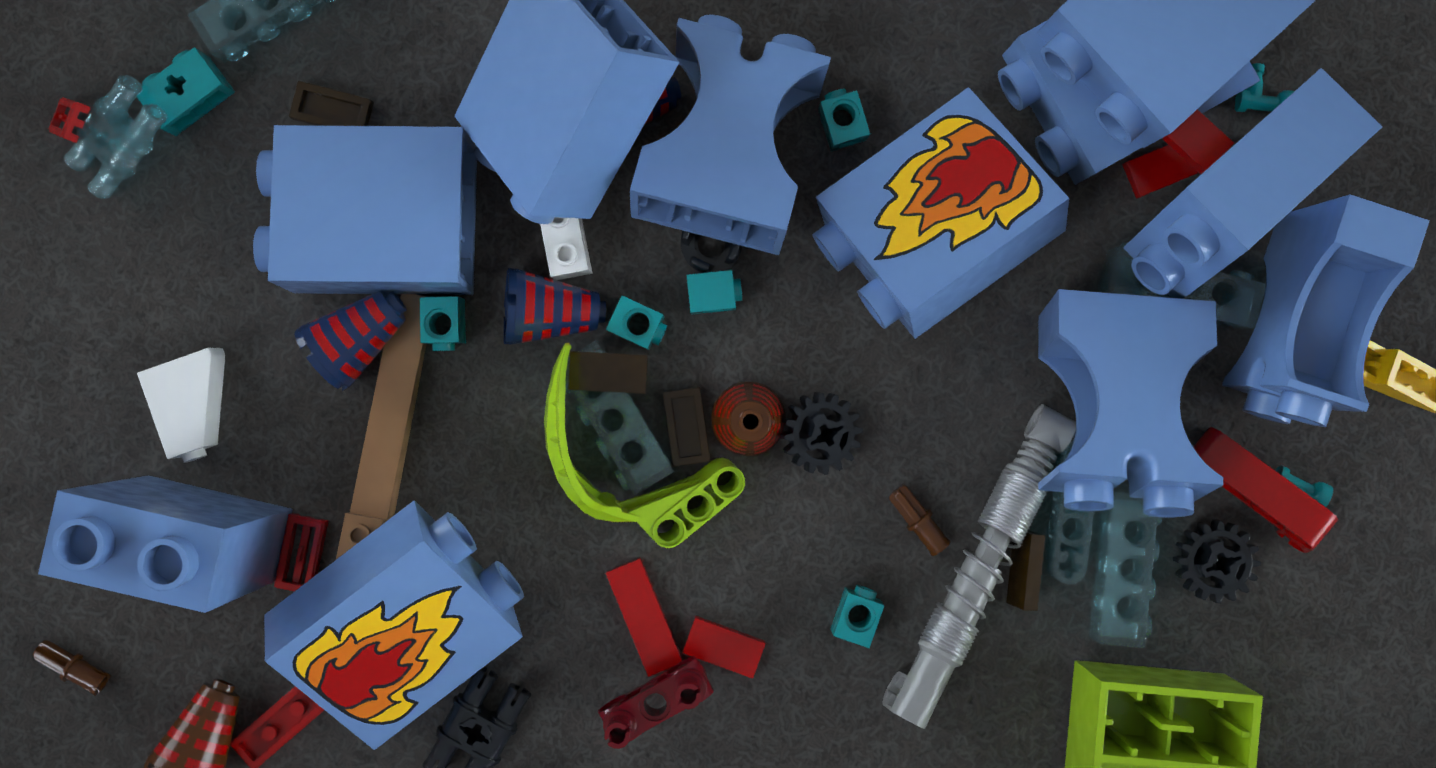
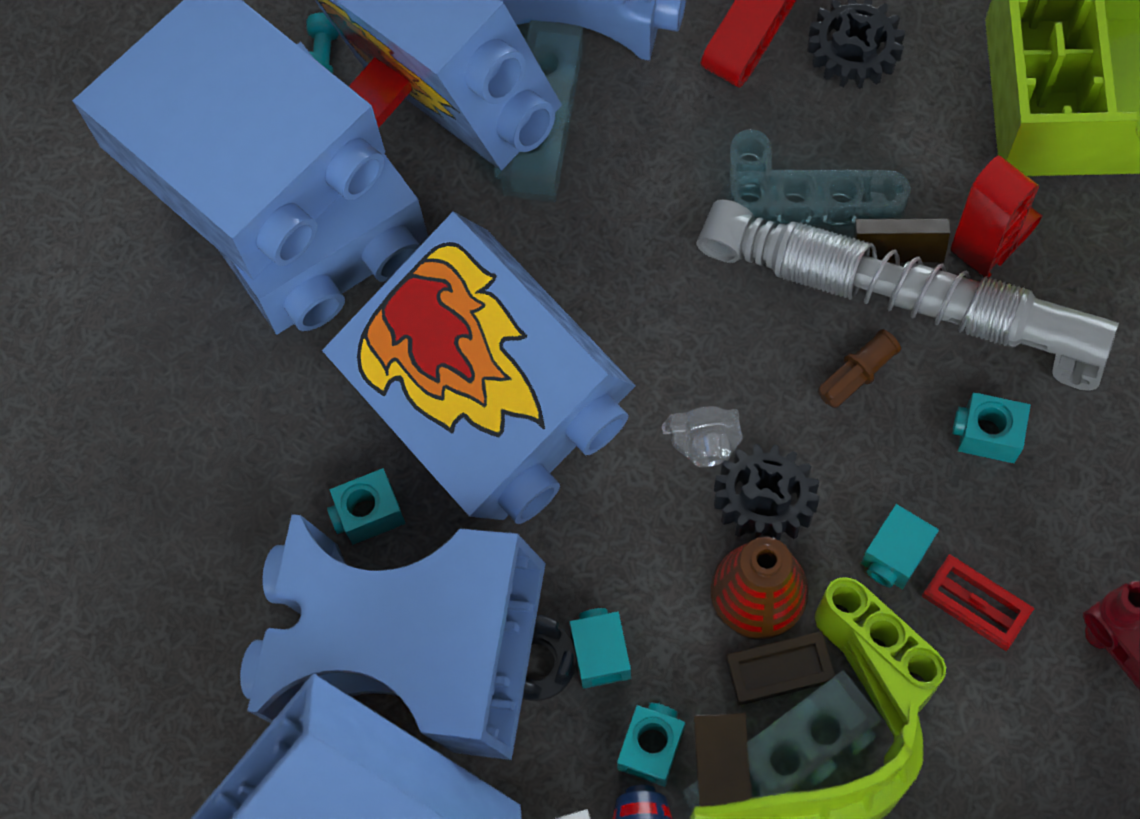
camera: 85 degrees left, 20 degrees down
(644, 616) = (1042, 699): red tile -> none
(724, 647) = (1062, 591): red tile -> none
(735, 589) = (967, 617): none -> red tile
(767, 528) = (898, 548): none -> teal brick
(873, 391) = (705, 434): none -> clear piece
(1027, 647) = (996, 216): none -> red beam
(1110, 586) = (901, 149): clear light blue brick -> none
(1126, 378) = (656, 146): medium blue brick -> none
(1157, 170) = (407, 147): red tile -> none

